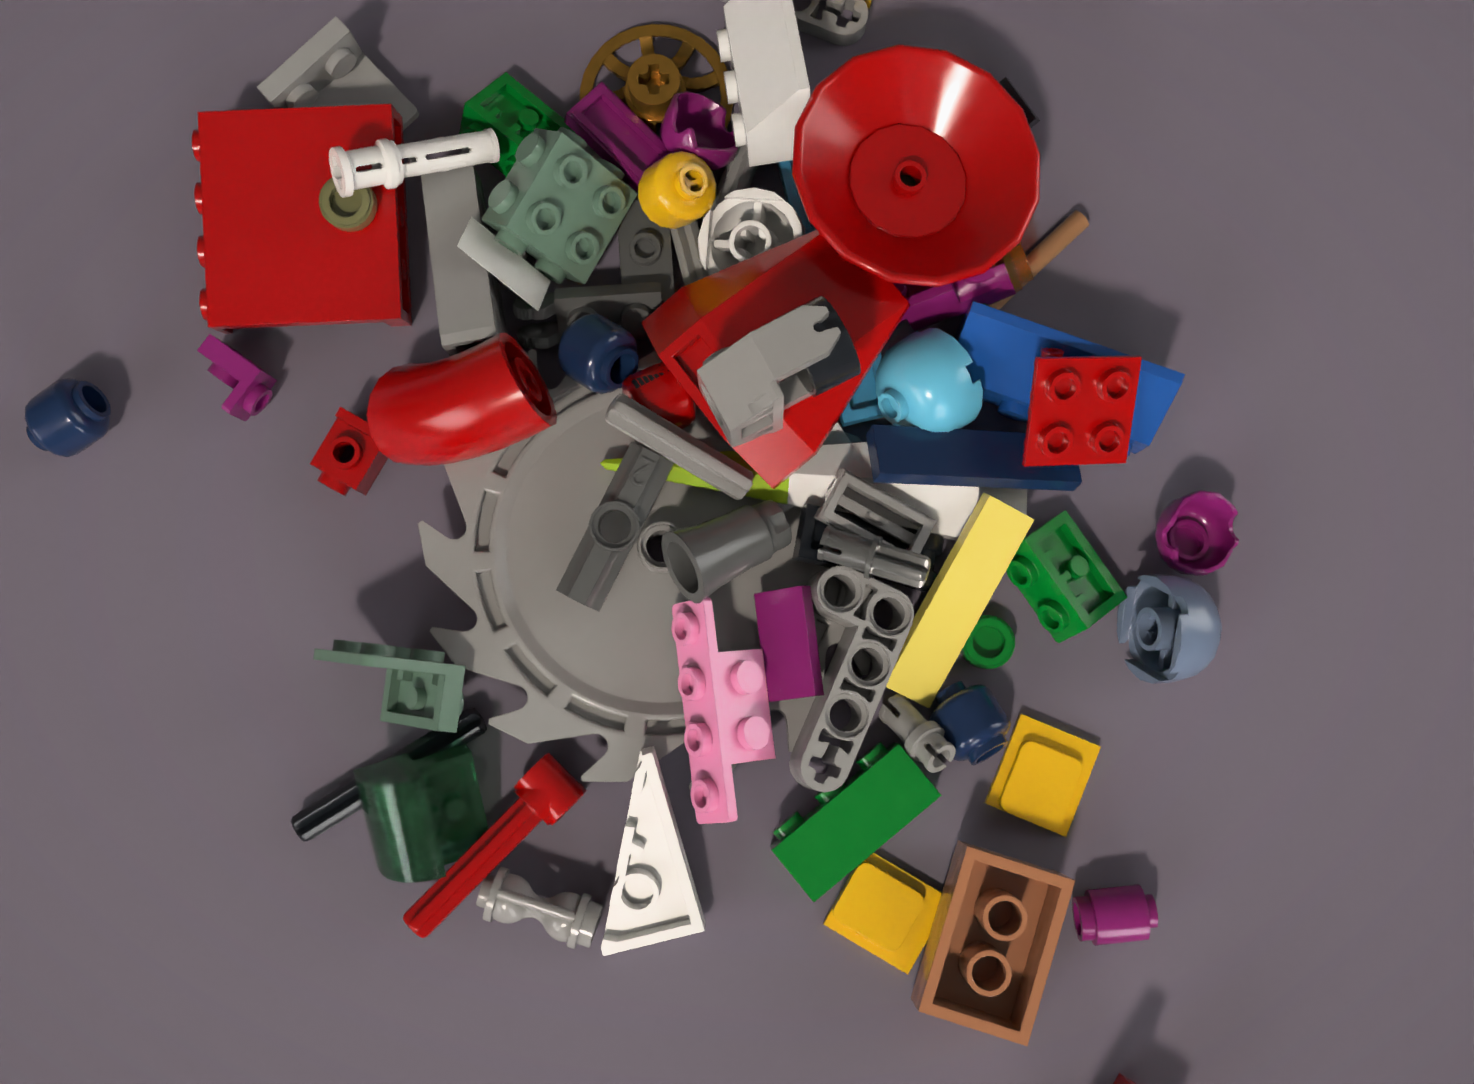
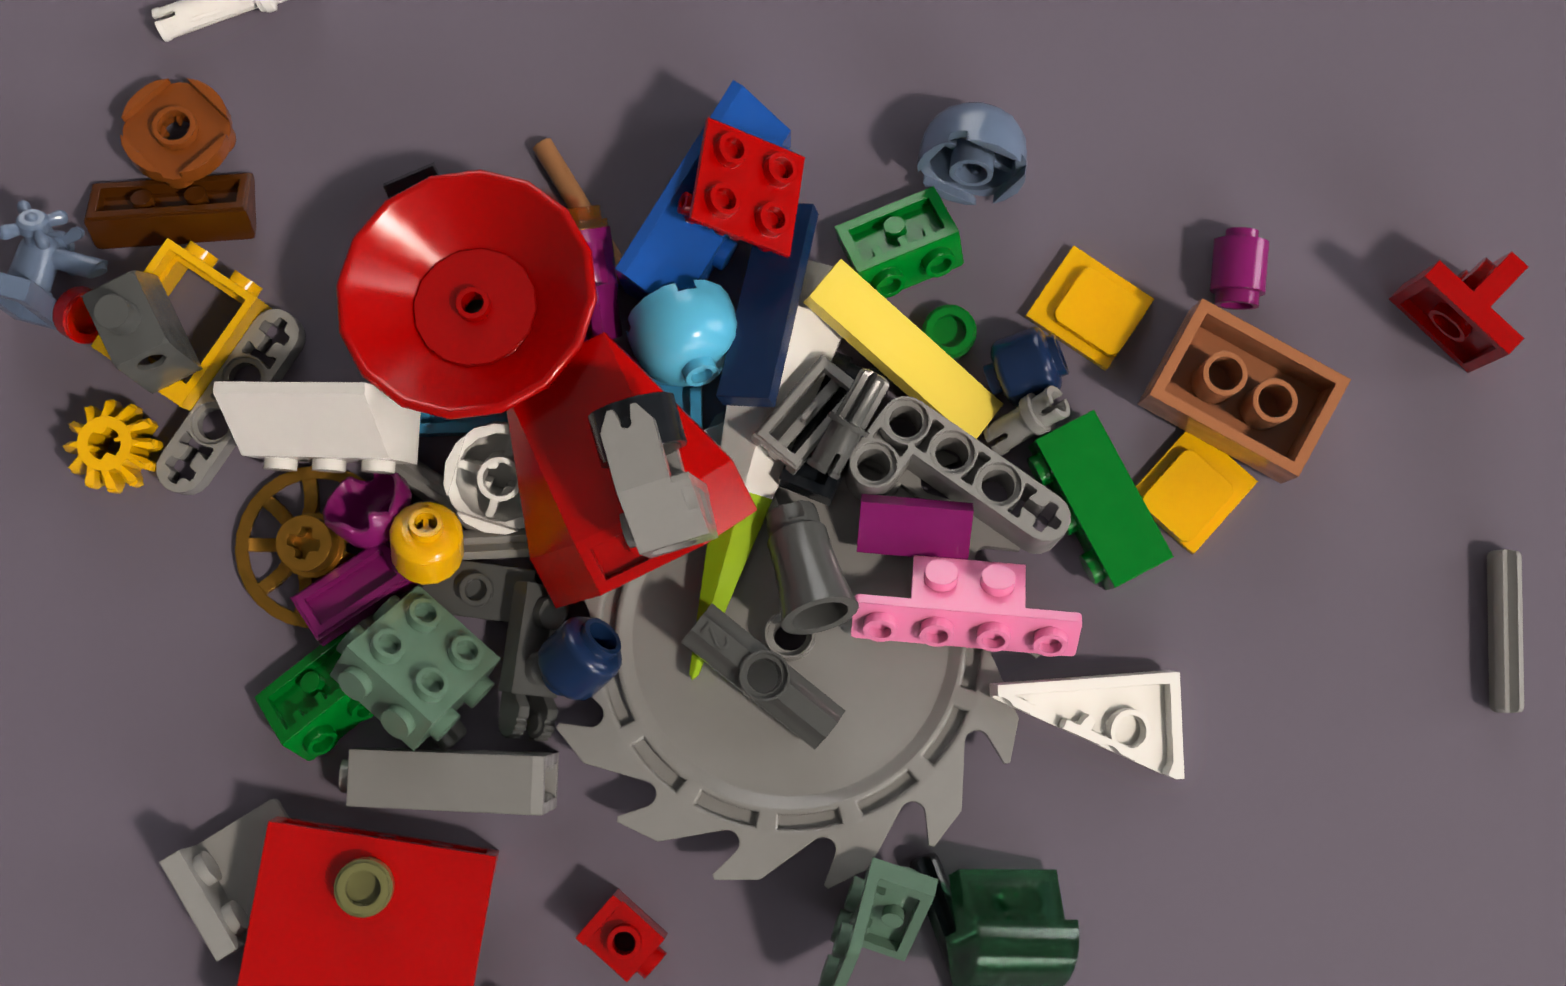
camera: 75 degrees left, 0 degrees up
(387, 160) = (336, 831): white pin -> none
(459, 405) = (604, 811): red brick -> none
(504, 264) = (465, 736): white sticker -> none
(544, 795) = (1014, 806): red axle -> none
(564, 916) = (1137, 809): light grey piece -> none
(661, 393) = (644, 610): red head -> none
(679, 446) = (697, 594): light grey axle -> none
(1196, 533) = (885, 105): magenta hair -> none

